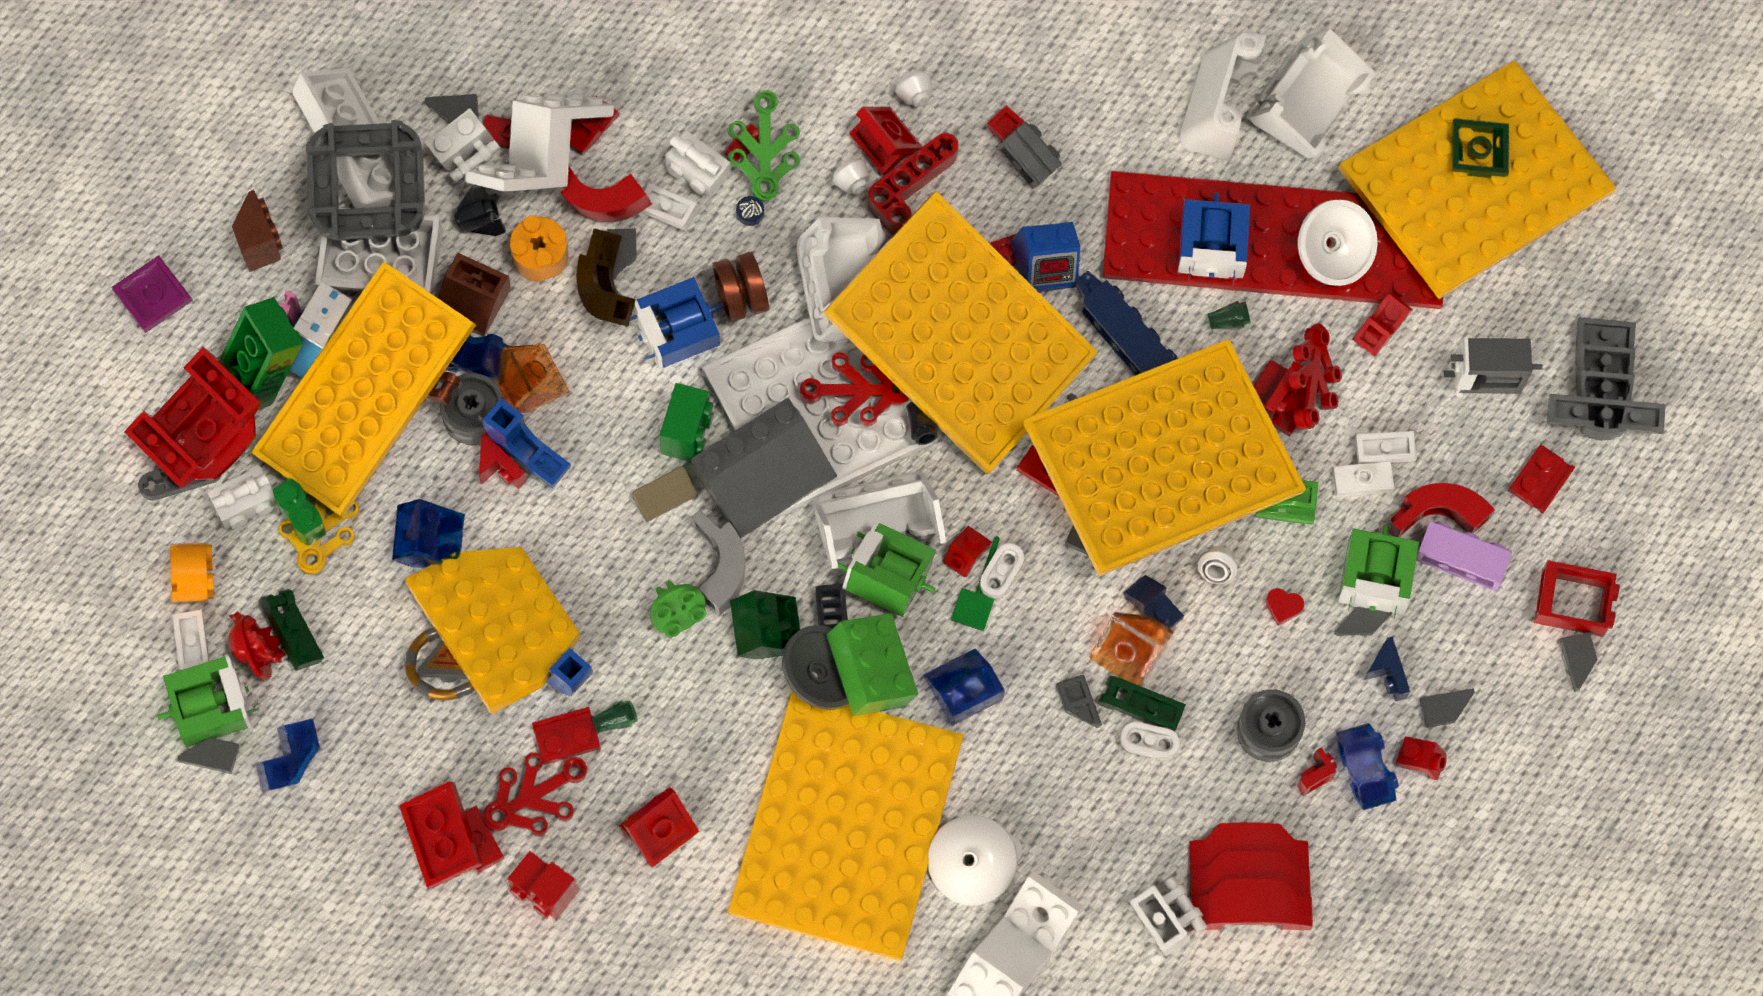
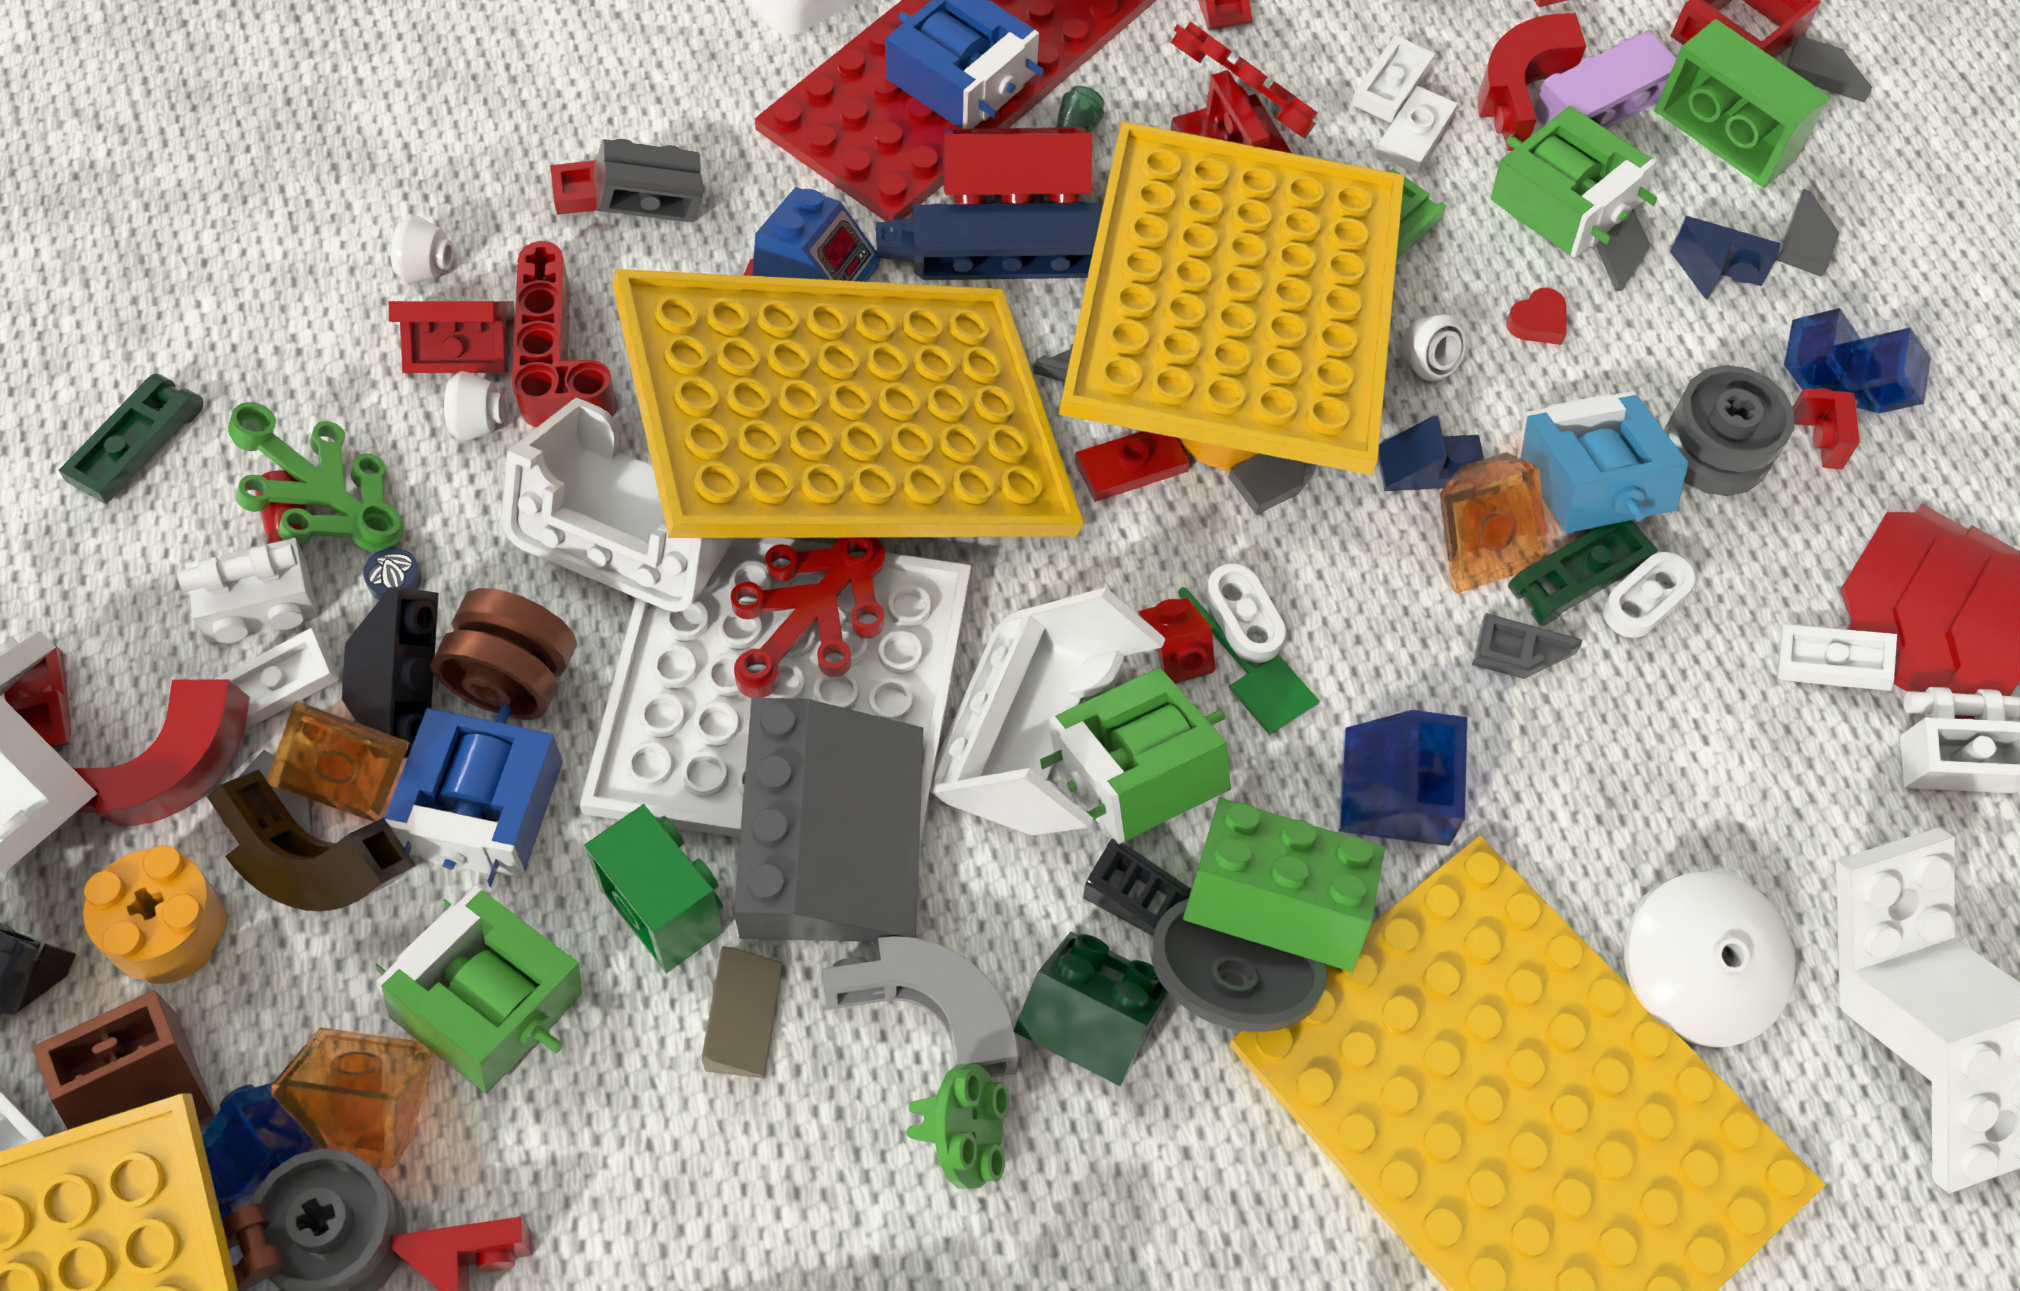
camera: 55 degrees left, 10 degrees down
(510, 433) = (431, 1188): blue arch -> none
(599, 399) = (501, 990): none -> bright green piece
(648, 260) = (336, 761): none -> clear orange slope
(699, 248) = (389, 663): none -> black slope
(731, 53) = (130, 437): none -> dark green plate
(922, 428) = (941, 558): black cone -> none
(1169, 306) = (1017, 163): none -> red slope
(1177, 841) = (1837, 657): none -> white plate
(1201, 676) = (1602, 461): none -> dark azure piece
(1422, 757) = (1872, 297): red bracket -> none
(1496, 624) = (1740, 103): none -> bright green brick

